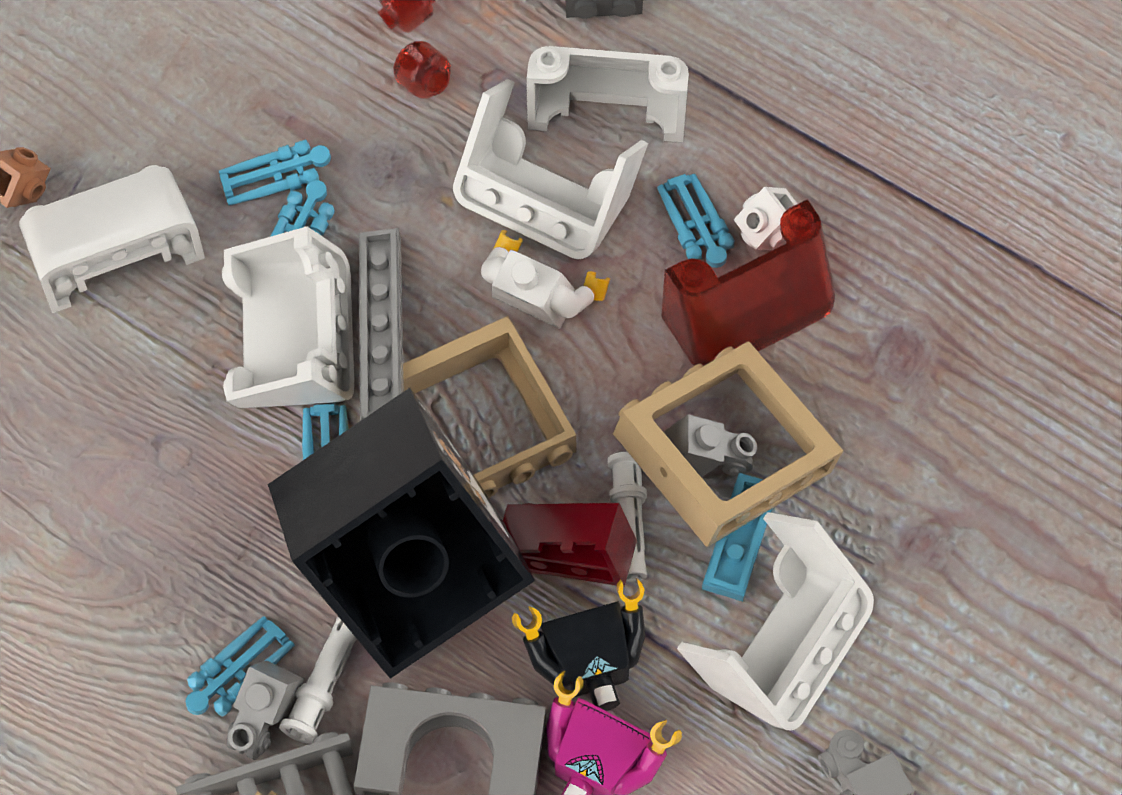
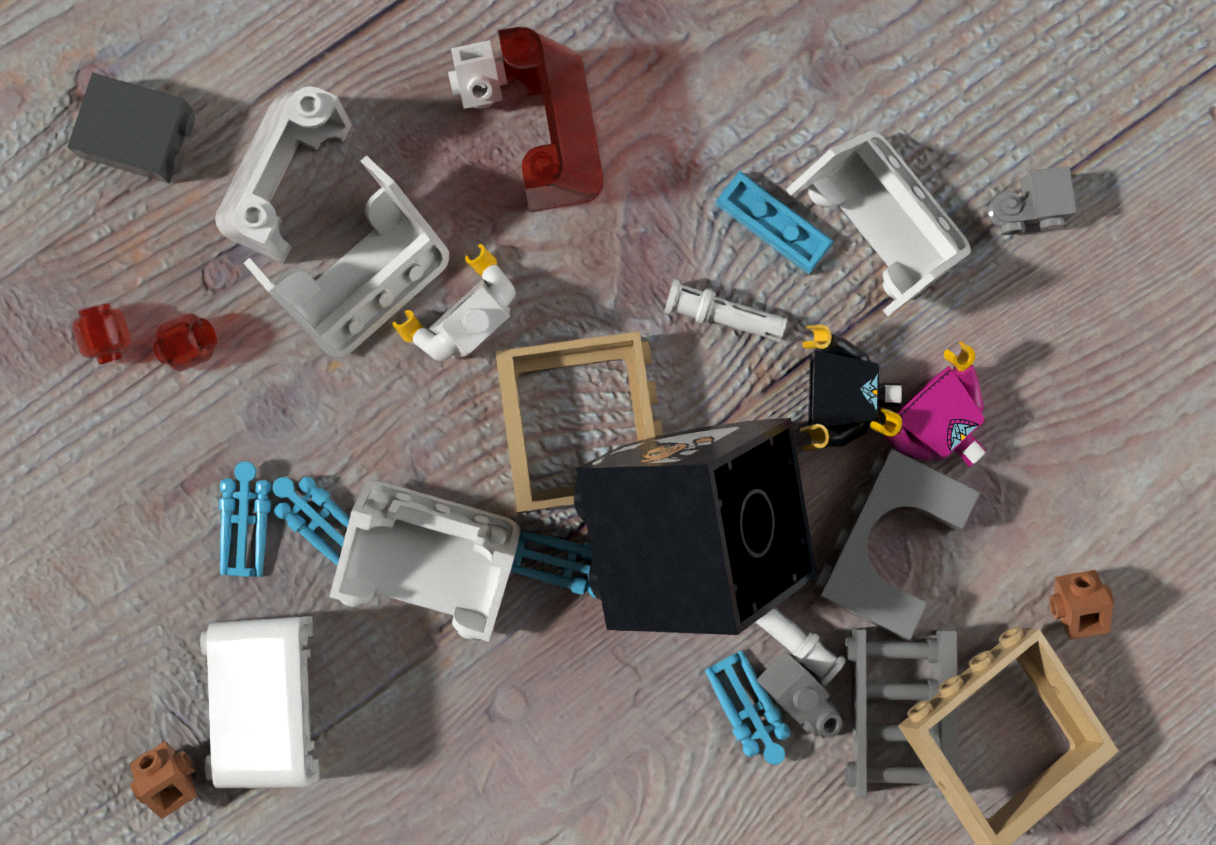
camera: 75 degrees left, 20 degrees up
(380, 319) = (462, 473): light grey tile -> none
(573, 540) = (741, 374): dark red wedge -> none
(679, 481) = (711, 260): tan piece -> none
(708, 446) = (688, 221): light grey brick -> none
(715, 255) = (491, 139): medium azure piece -> none

